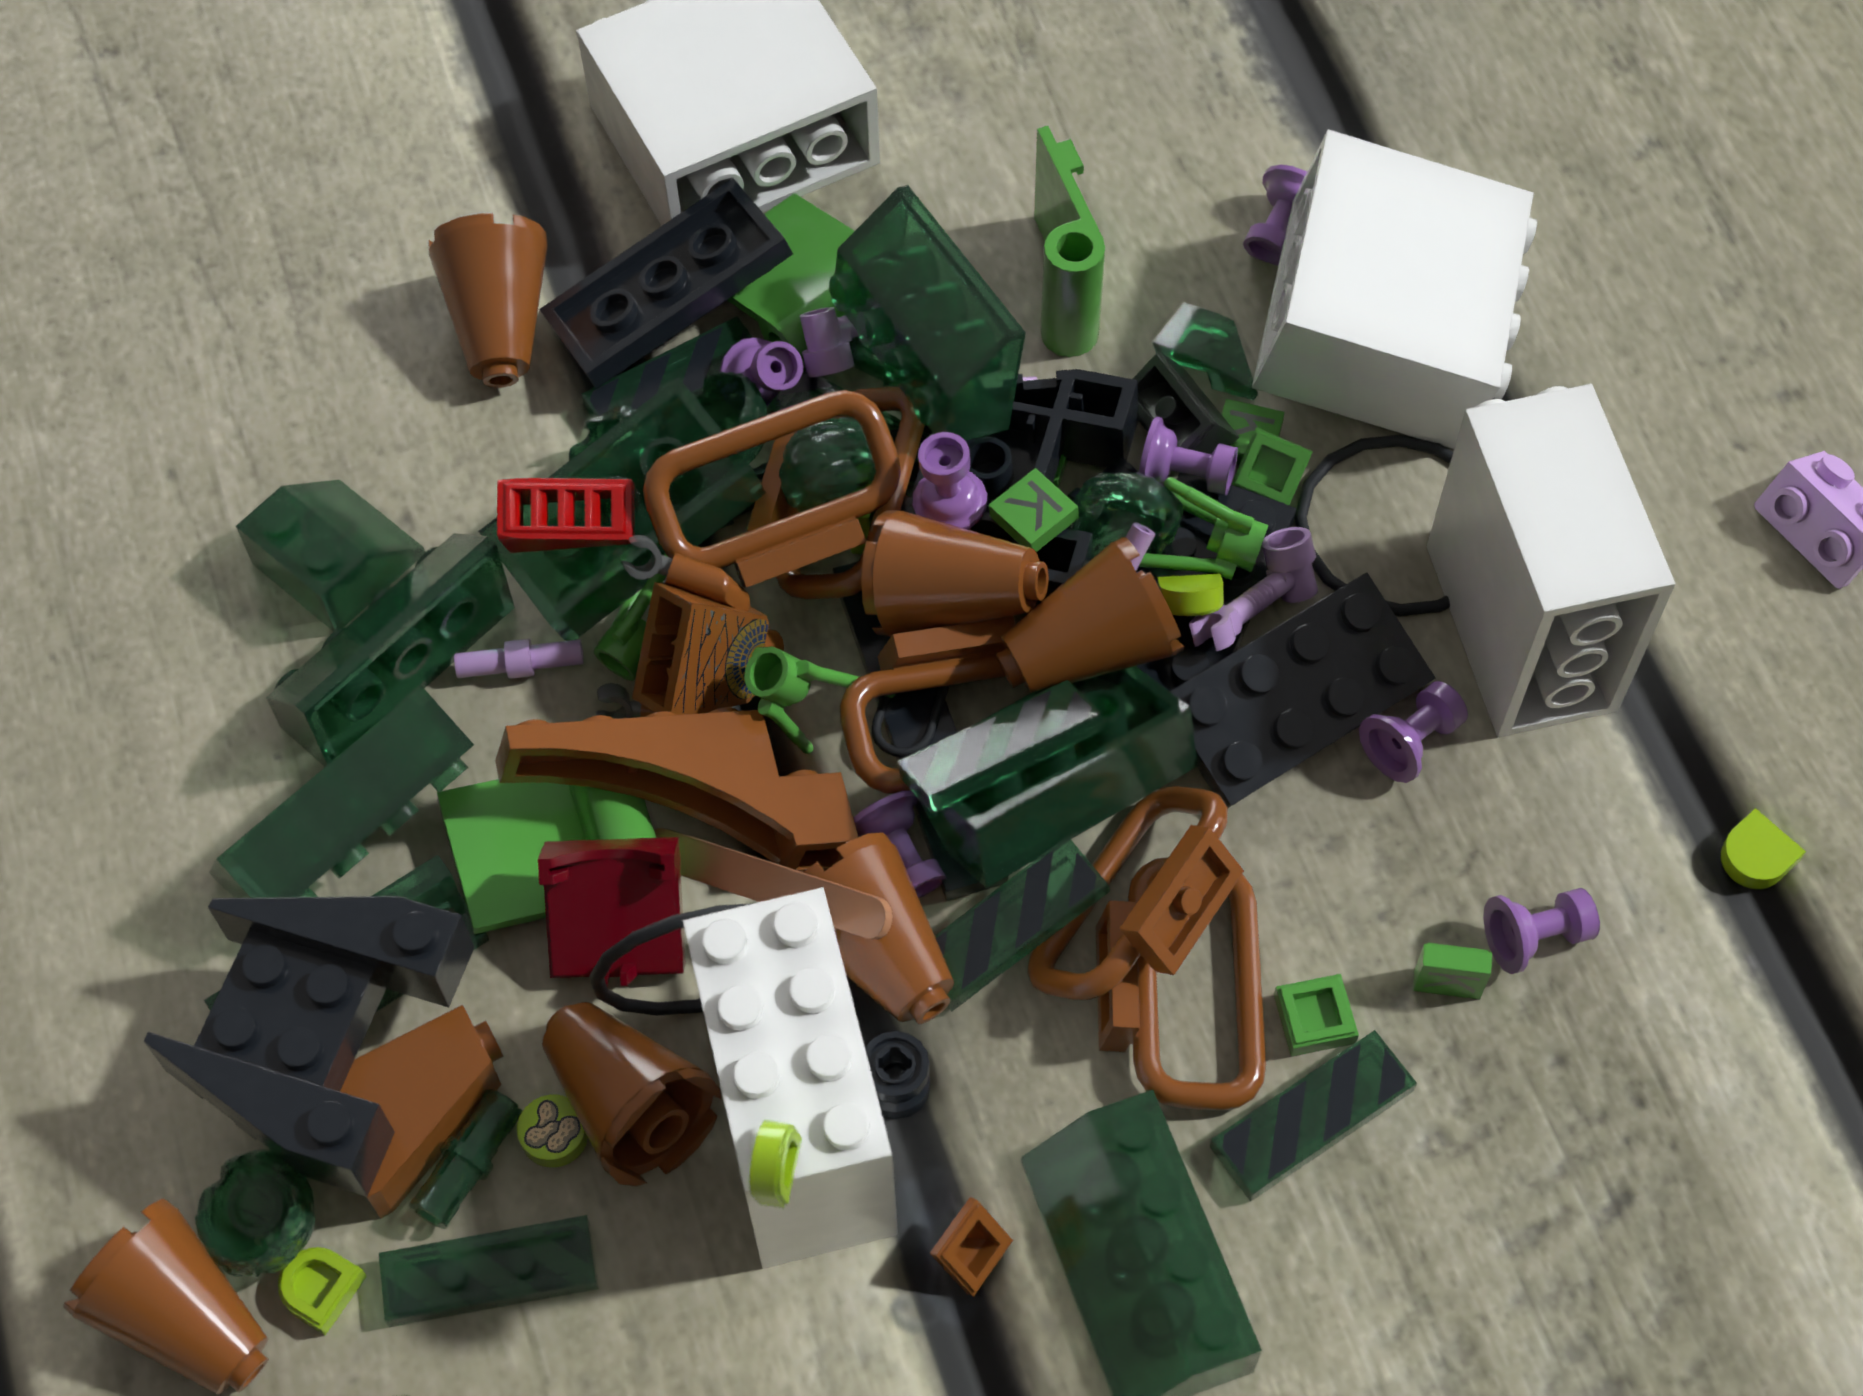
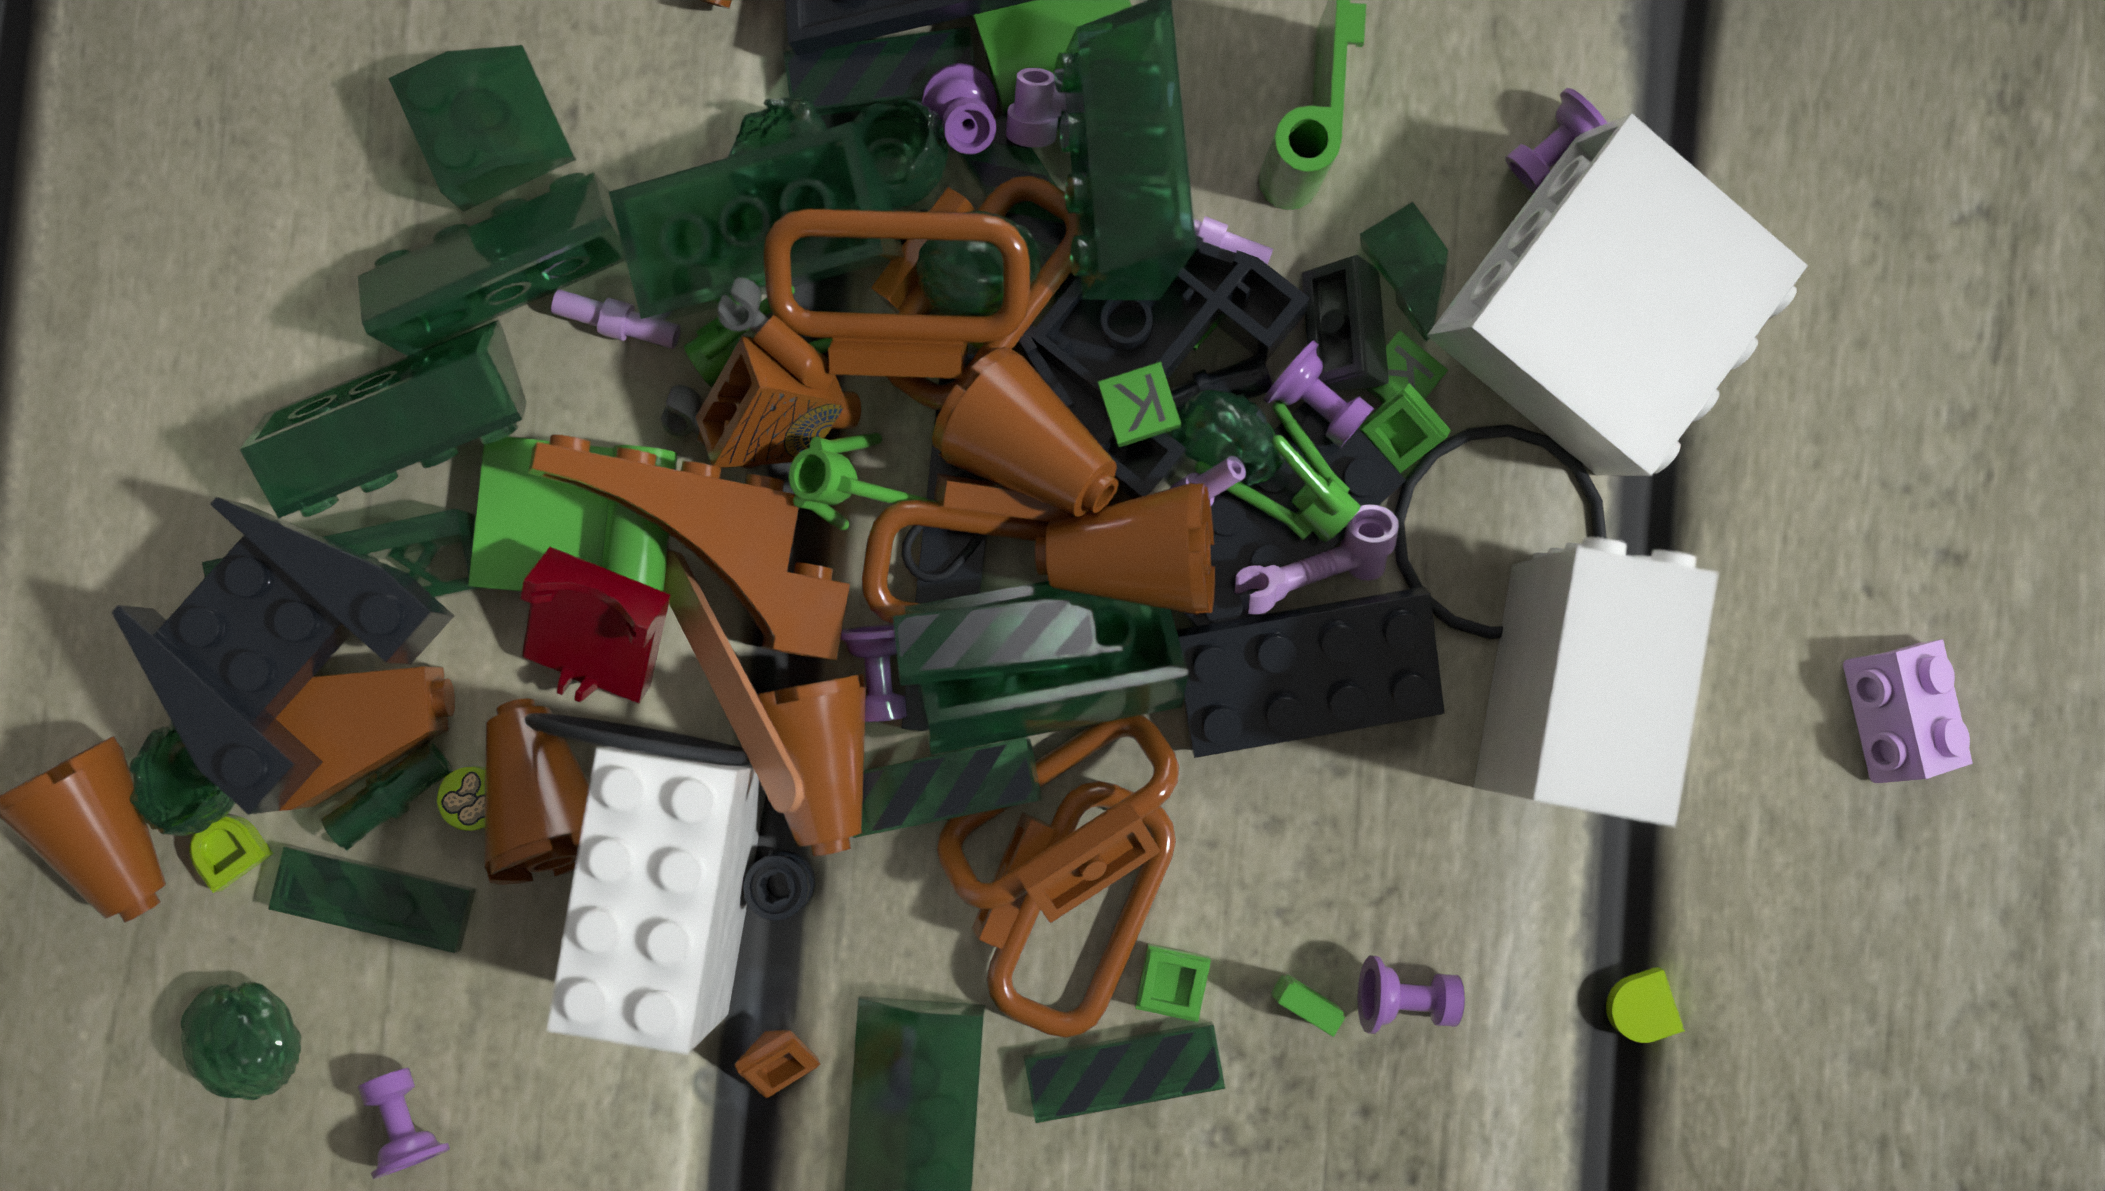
camera: 20 degrees right, 25 degrees up
(517, 492) = (636, 202): red slope -> none
(774, 1163) = (573, 1032): lime tile -> none
(948, 488) = (1069, 348): medium lavender piece -> none
(1192, 593) = (1253, 545): lime tile -> none
(1396, 743) = (1374, 767): medium lavender piece -> none

